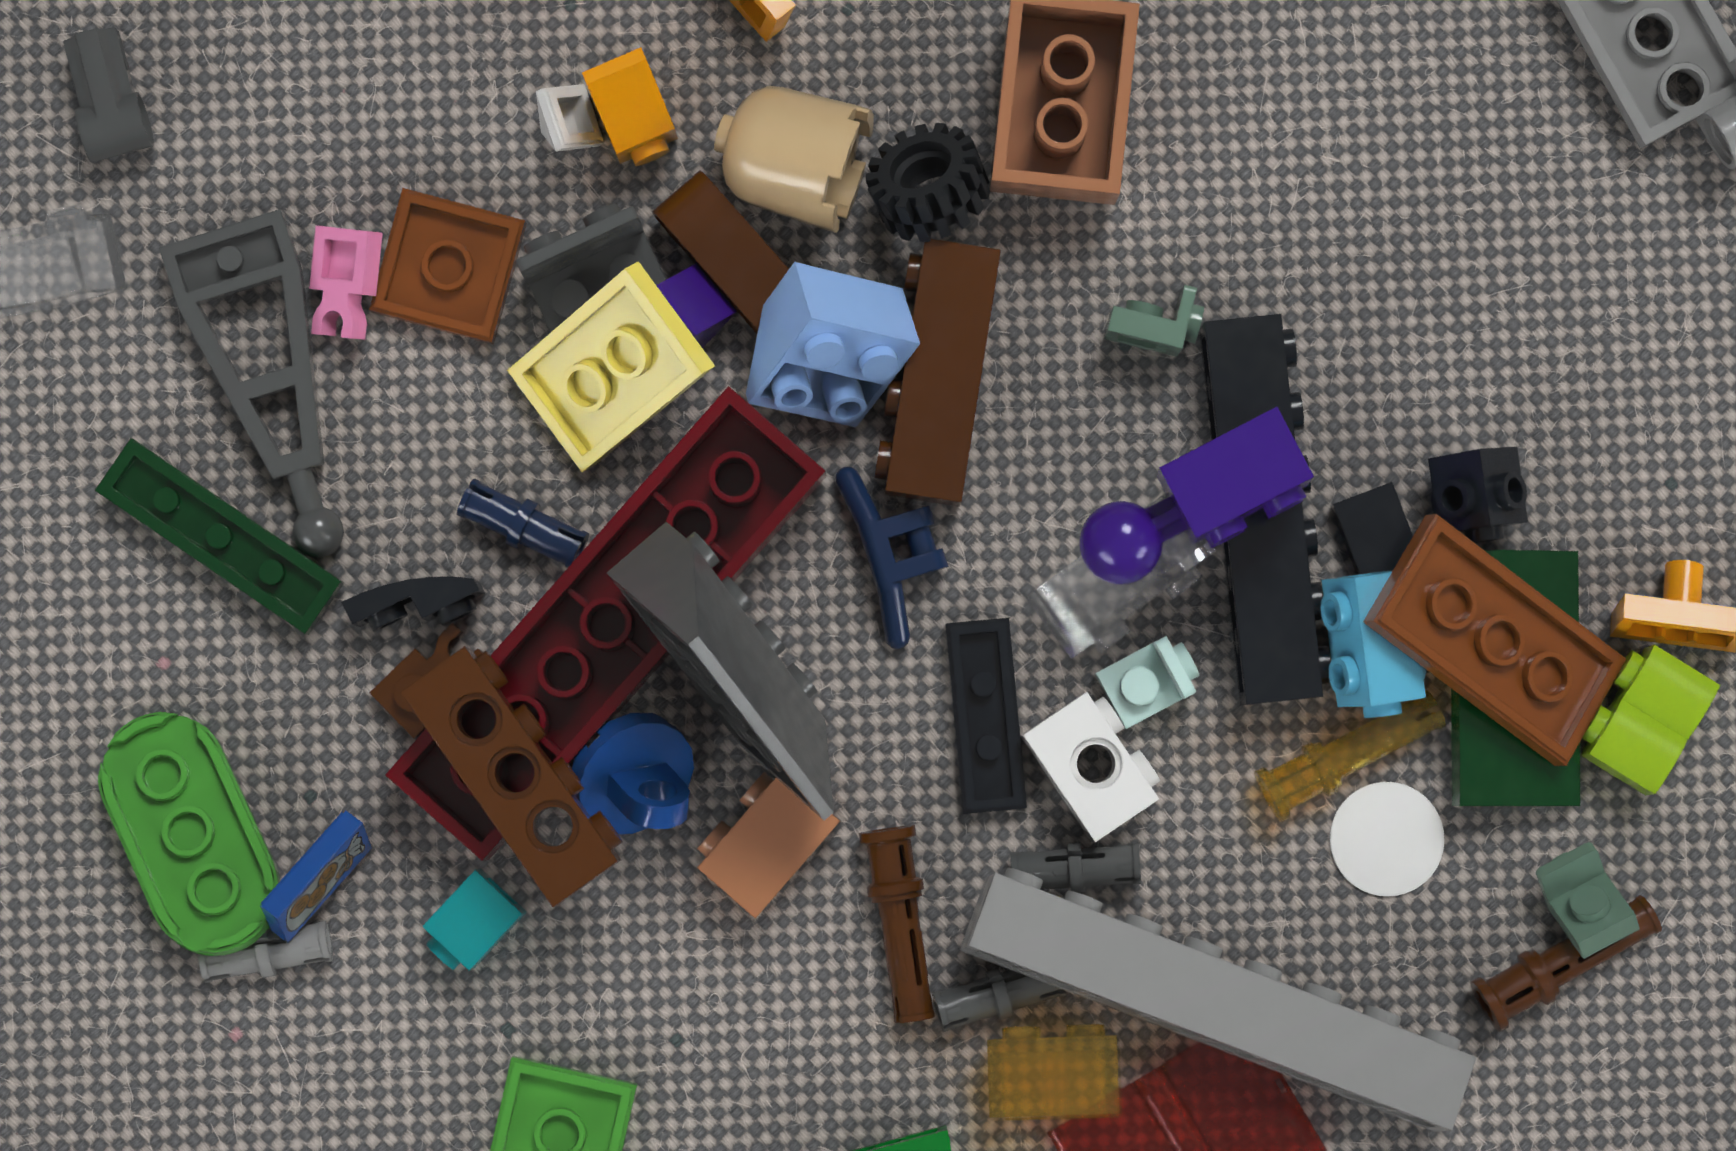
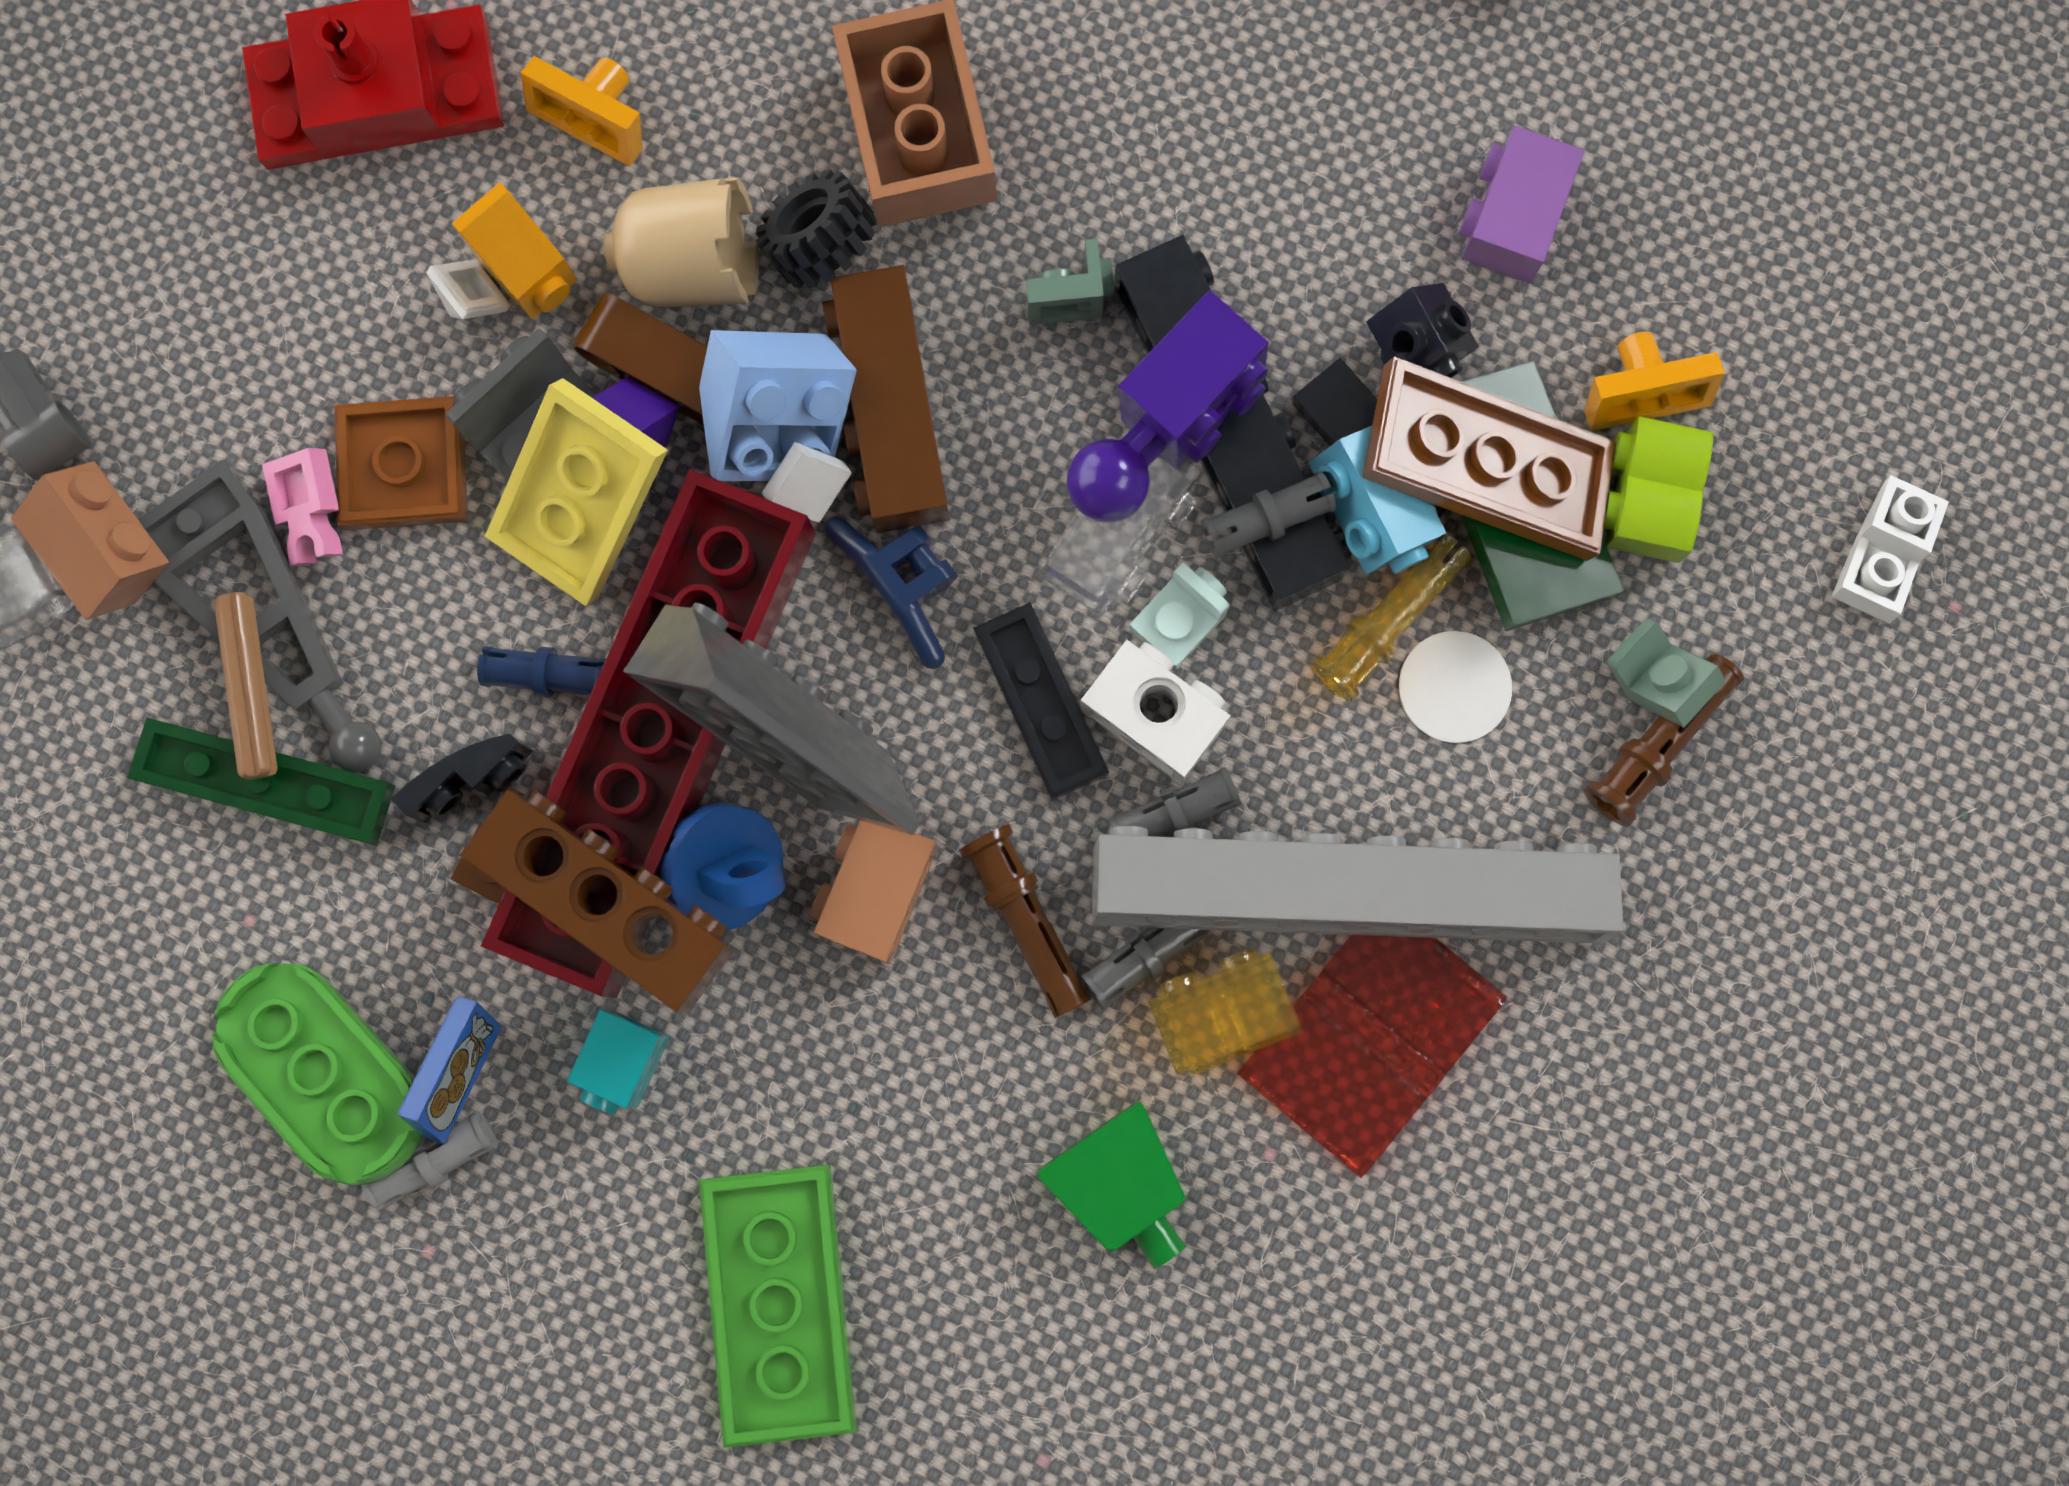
camera: 10 degrees left, 5 degrees down
(132, 250) = (89, 539): none -> nougat brick
(236, 443) = (245, 686): none -> medium nougat axle
(834, 431) = (807, 481): none -> white tile
(1262, 622) = (1268, 515): none -> dark grey pin
(1623, 390) = (1521, 205): none -> medium lavender brick

